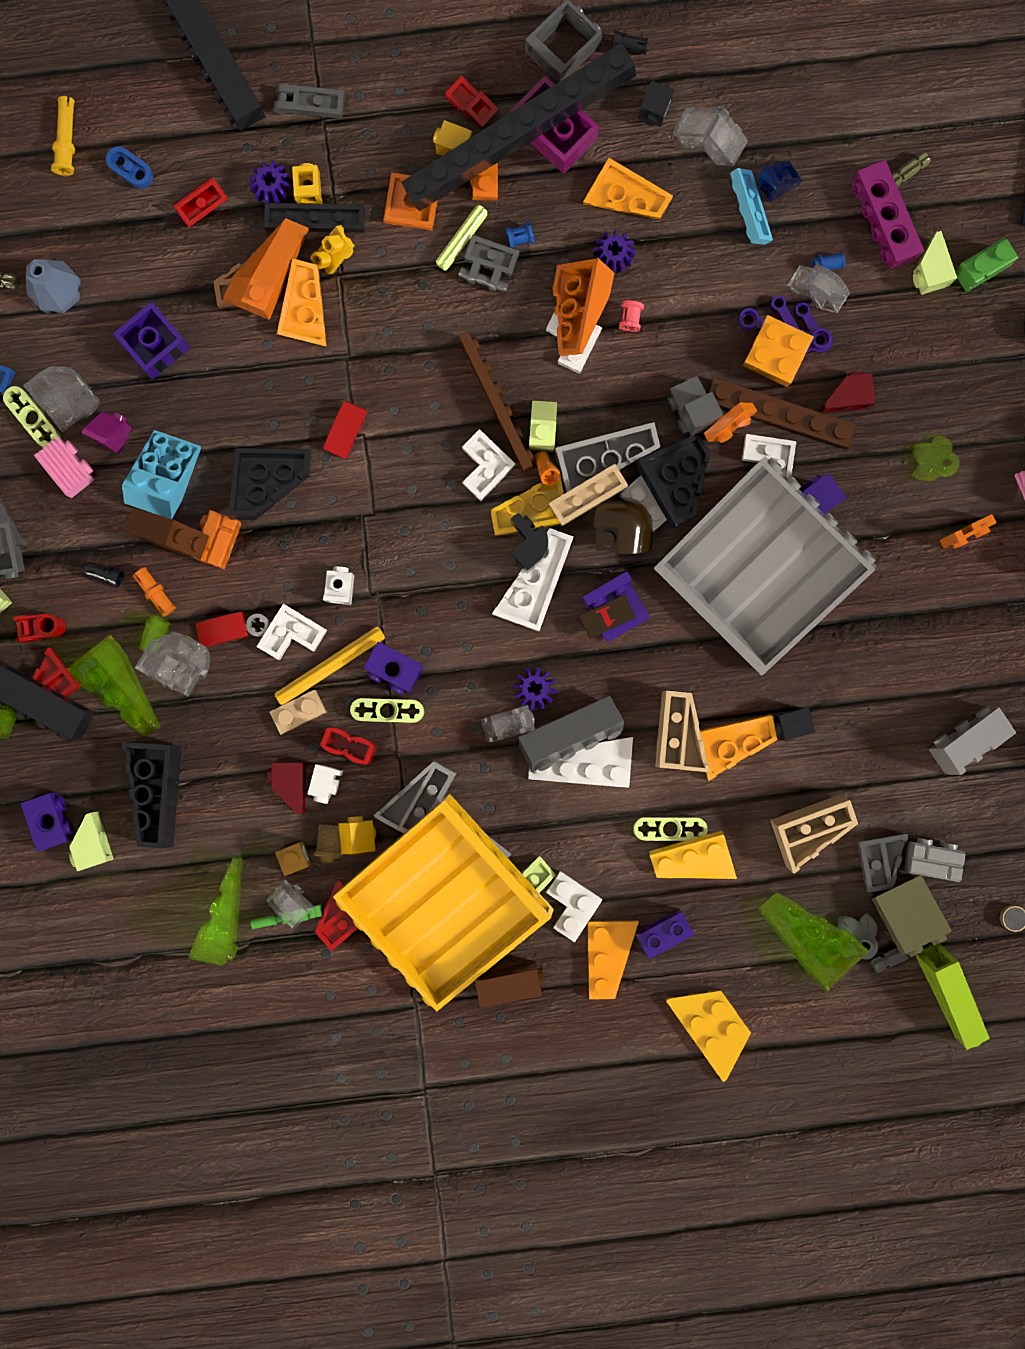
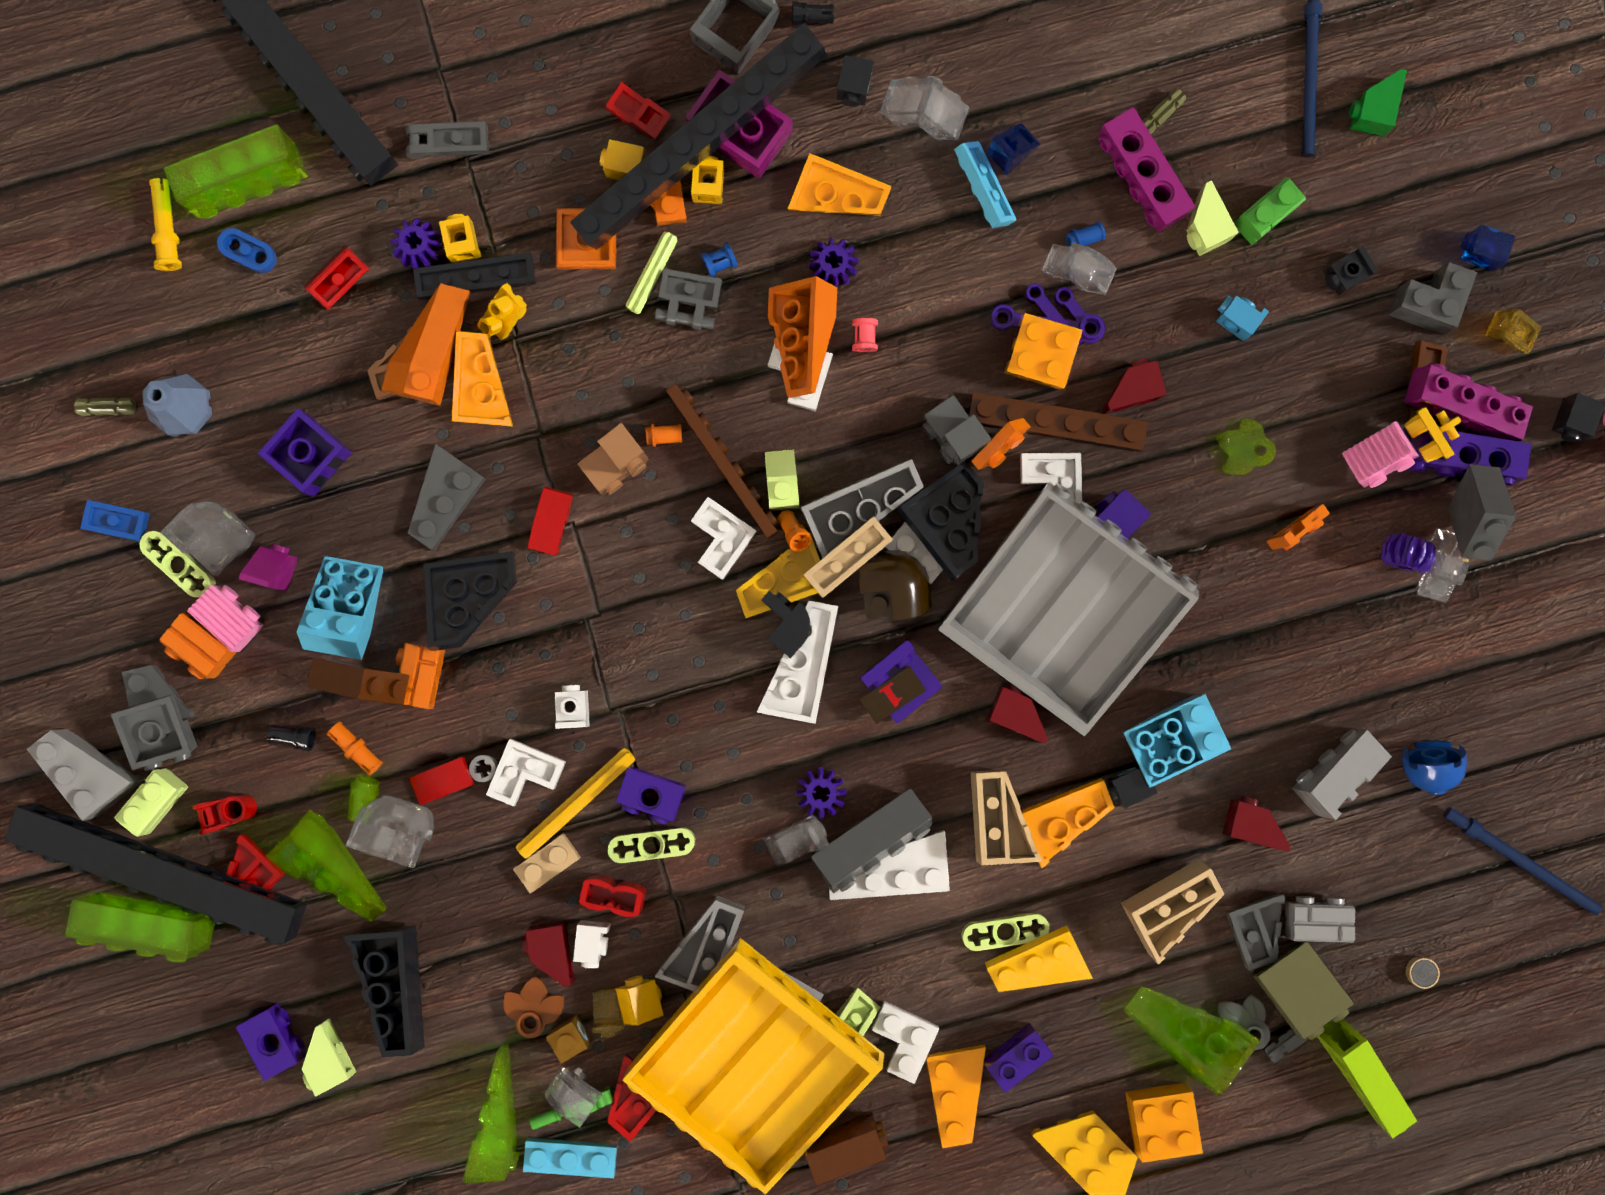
camera: 15 degrees left, 0 degrees up
(37, 486) = (195, 646): none -> orange brick
(131, 100) = (236, 172): none -> clear neon green brick
(259, 397) = (443, 497): none -> dark grey wing
(268, 825) = (534, 1003): none -> dark orange plate
(279, 958) = (570, 1158): none -> medium azure plate
(407, 386) = (613, 460): none -> medium nougat brick
(450, 372) = (663, 434): none -> orange pin
(519, 177) = (708, 192): none -> yellow brick
(708, 649) = (1016, 713): none -> dark red slope
(777, 1006) = (1163, 1122): none -> light orange brick
(838, 690) = (1177, 739): none -> medium azure slope
(892, 772) = (1254, 824): none -> dark red slope
(947, 349) = (1240, 316): none -> dark azure brick

